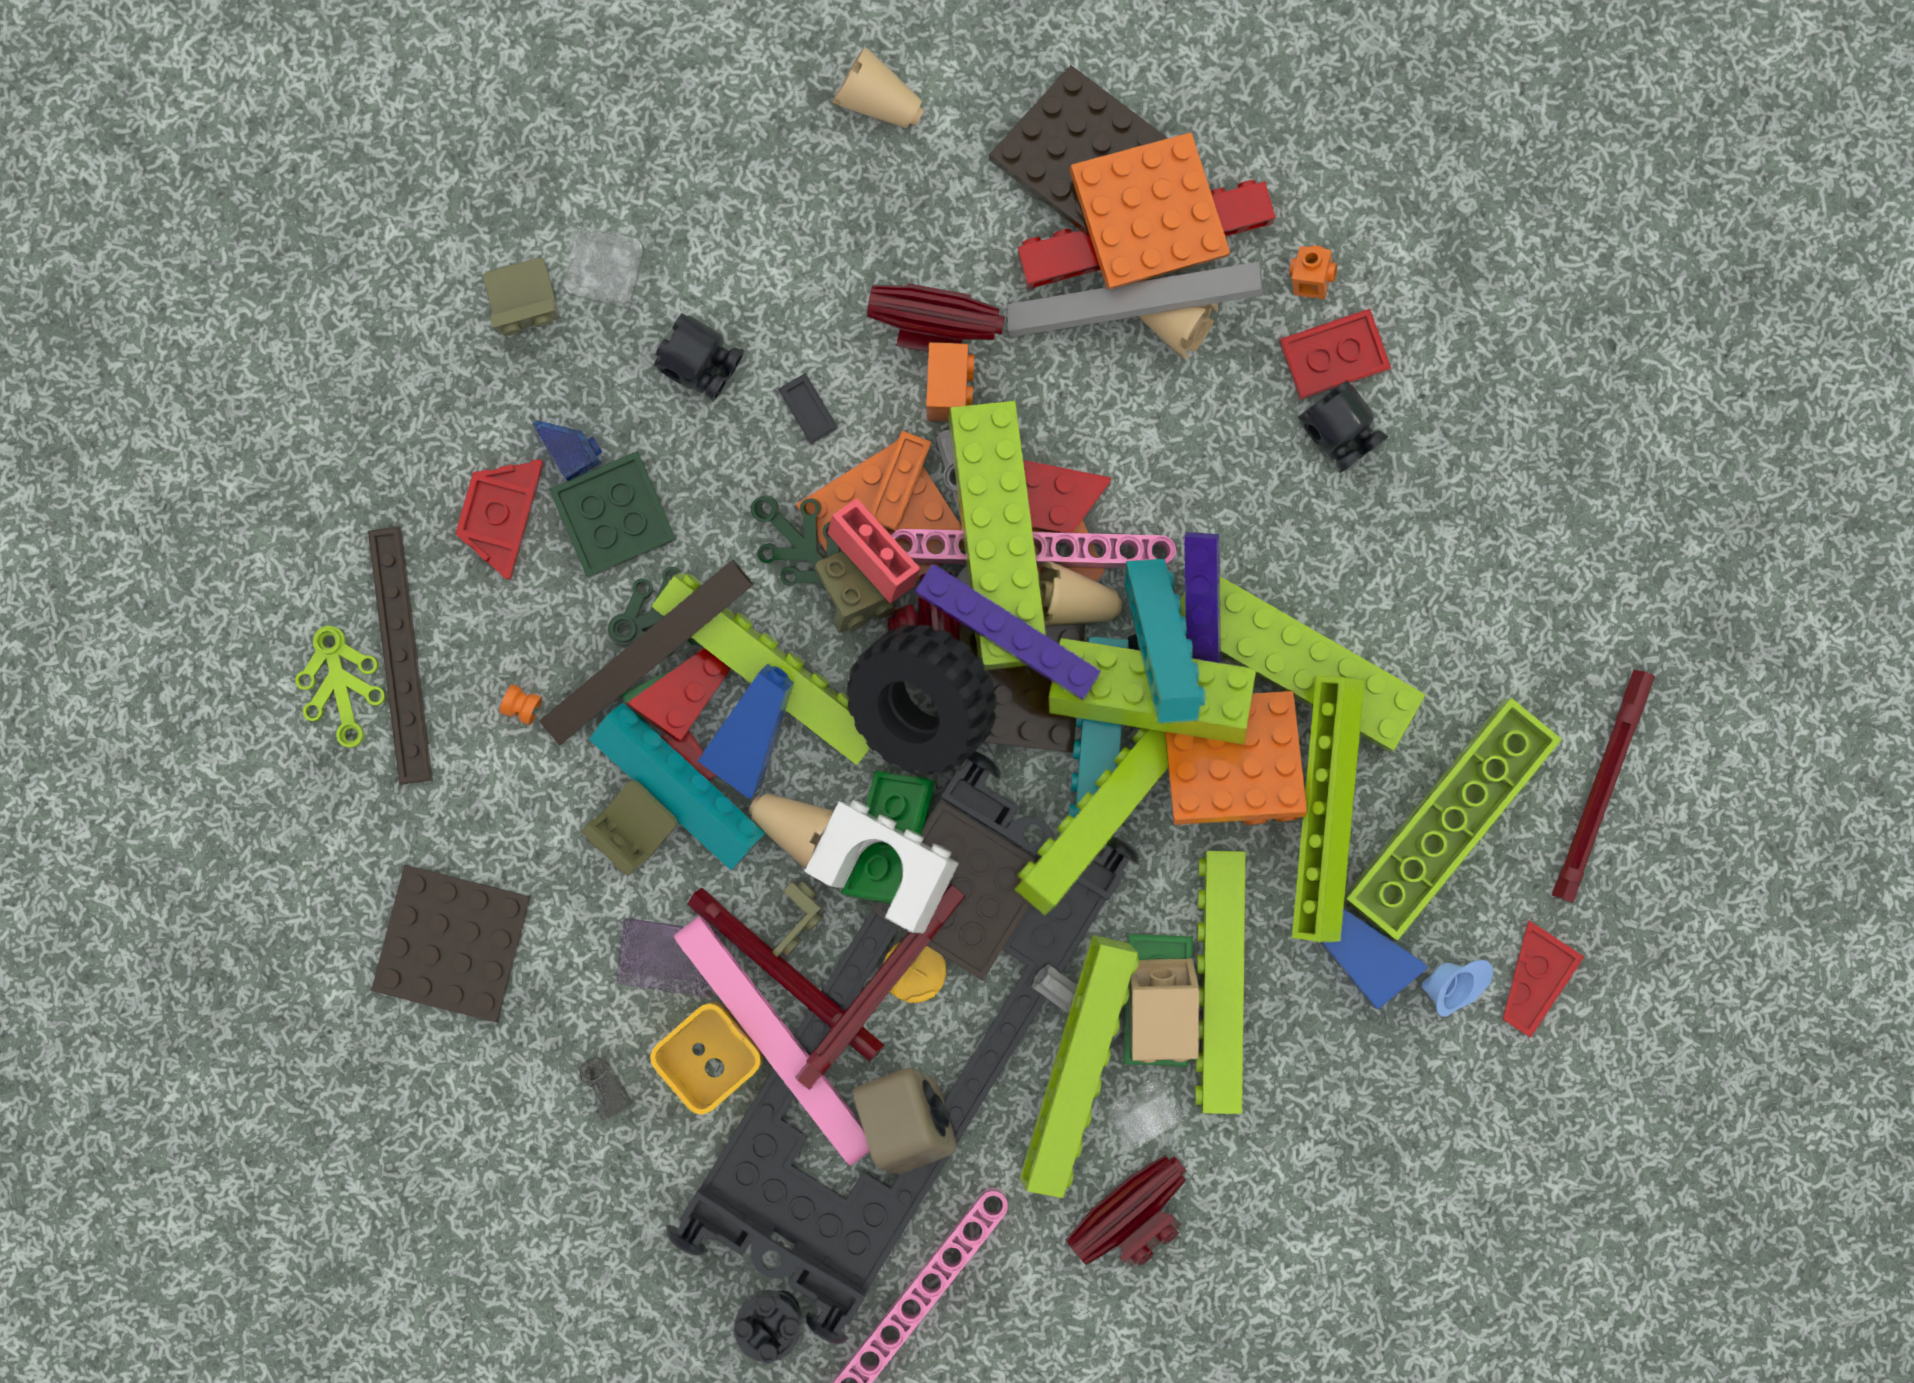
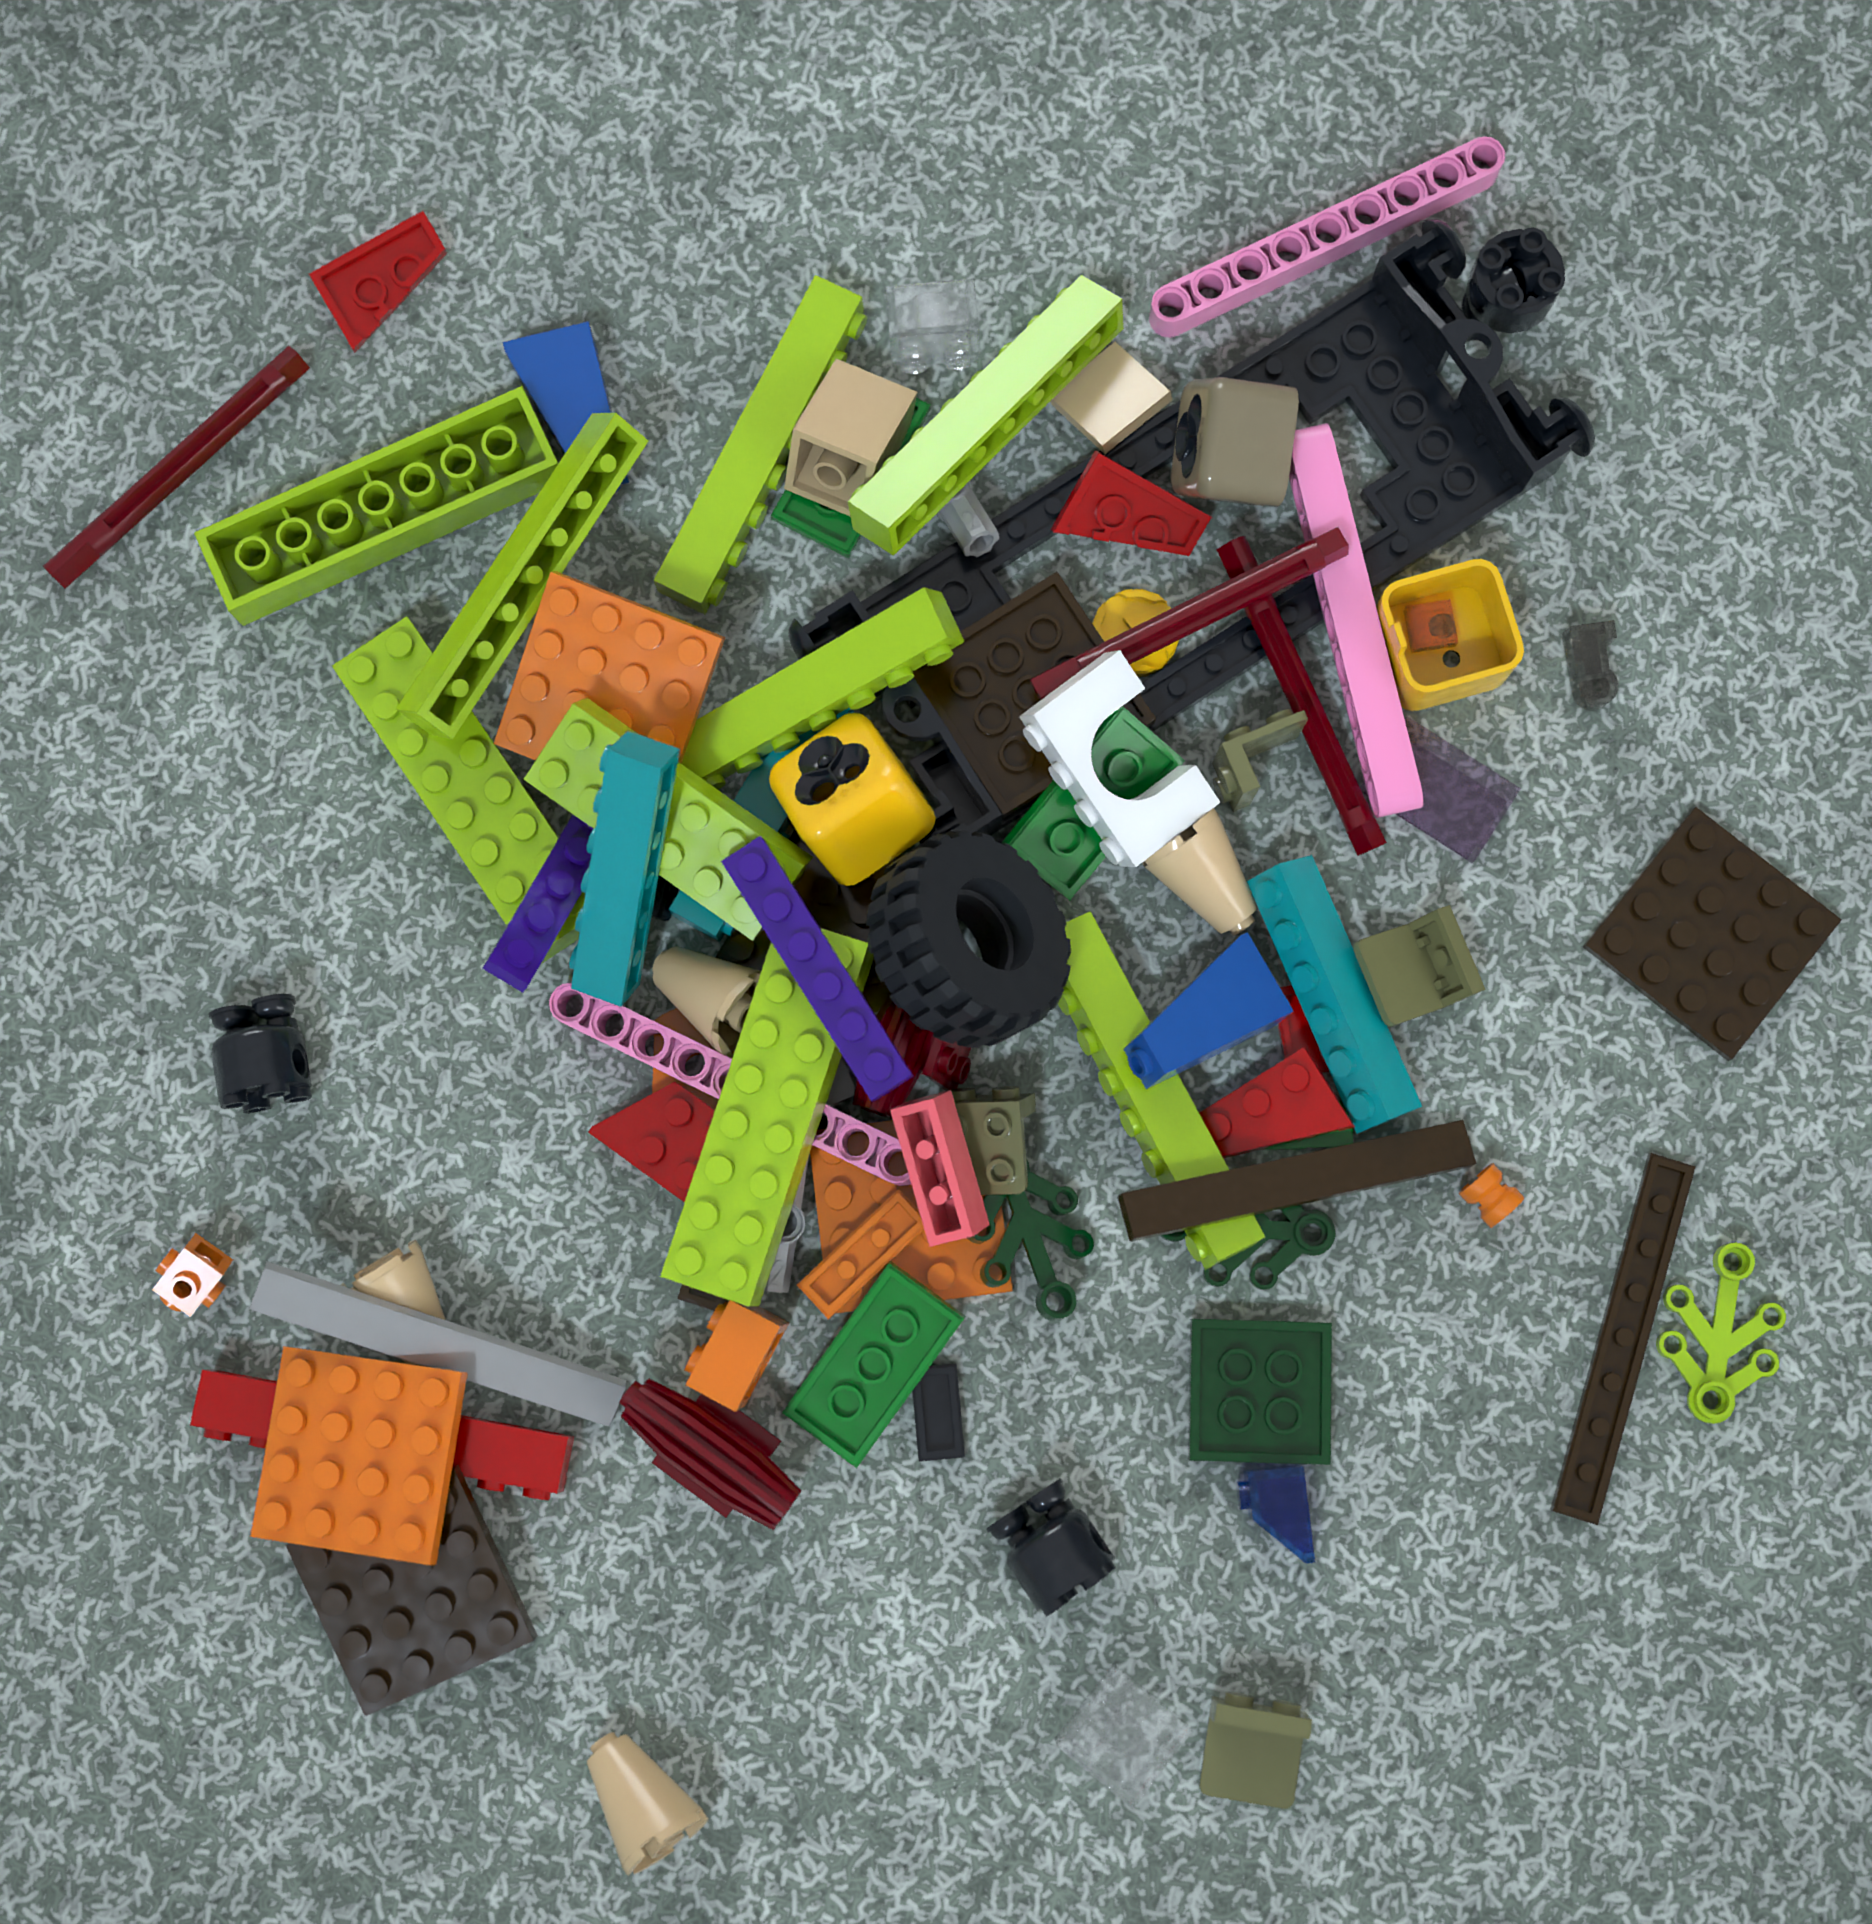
camera: 150 degrees left, 5 degrees down
(498, 513) = (1411, 1465): red wing -> none
(721, 1063) = (1430, 626): none -> clear orange tile
(860, 418) = (873, 1364): none -> green tile
(957, 1049) = (1130, 510): none -> red wing
(1003, 1123) = (1111, 398): none -> tan tile
(1024, 763) = (851, 799): none -> yellow piece
(1132, 1216) = (1007, 220): dark red plate -> none
(1334, 353) = (222, 1157): red tile -> none
(1457, 985) = (481, 313): light blue piece -> none

